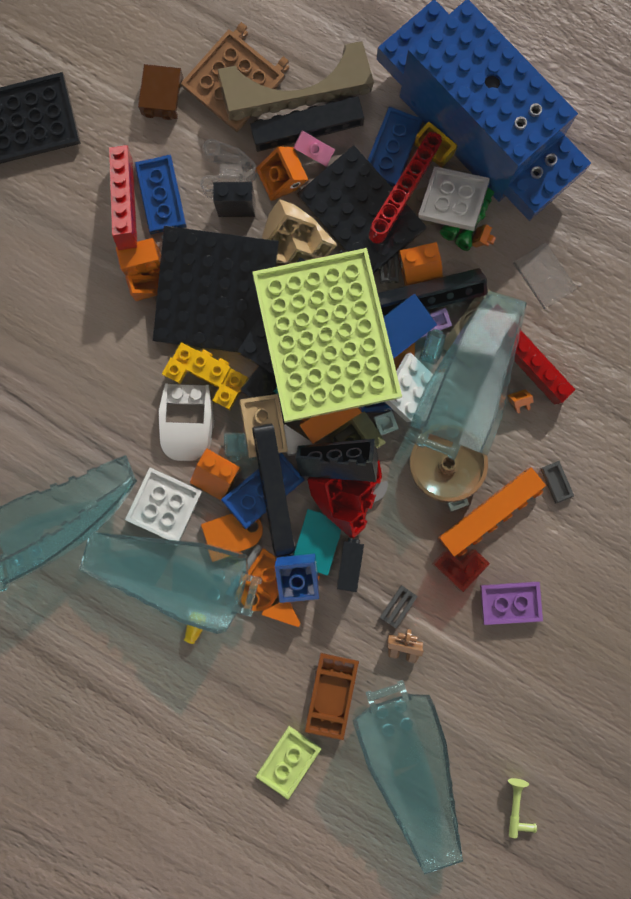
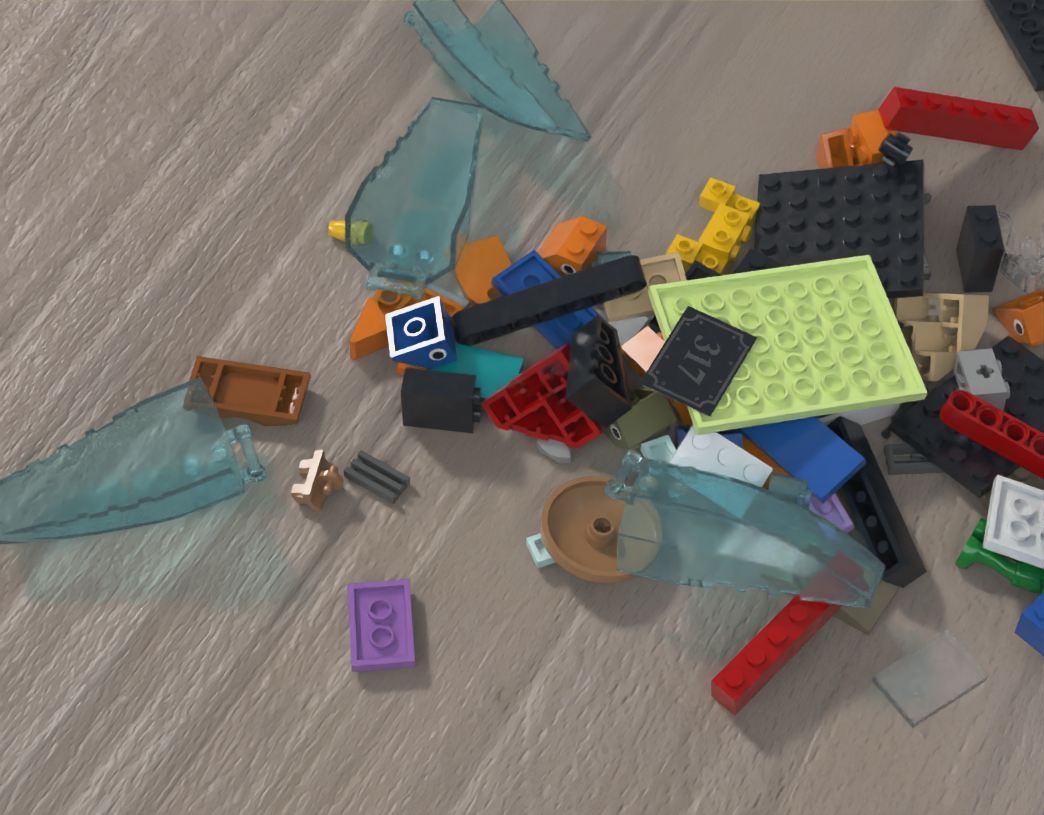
camera: 85 degrees right, 30 degrees down
(160, 193) = (979, 180): blue tile -> none
(161, 242) = (895, 149): none -> black gear
(163, 505) = (523, 194): white plate -> none
(186, 440) = (622, 212): white slope -> none
(288, 762) = (153, 346): yellowish green tile -> none
(347, 392) = (698, 361): none -> black sticker
(356, 216) = (982, 376): none -> light grey brick
(420, 263) = (922, 492): orange slope -> none
(461, 572) = (433, 549): clear red brick -> none
(482, 236) = (980, 579): orange tile -> none
(491, 512) = (527, 596): orange brick -> none
(518, 786) = (92, 633): yellowish green piece -> none
(520, 399) = (714, 636): orange tile -> none
(557, 482) = (580, 696): dark grey tile -> none

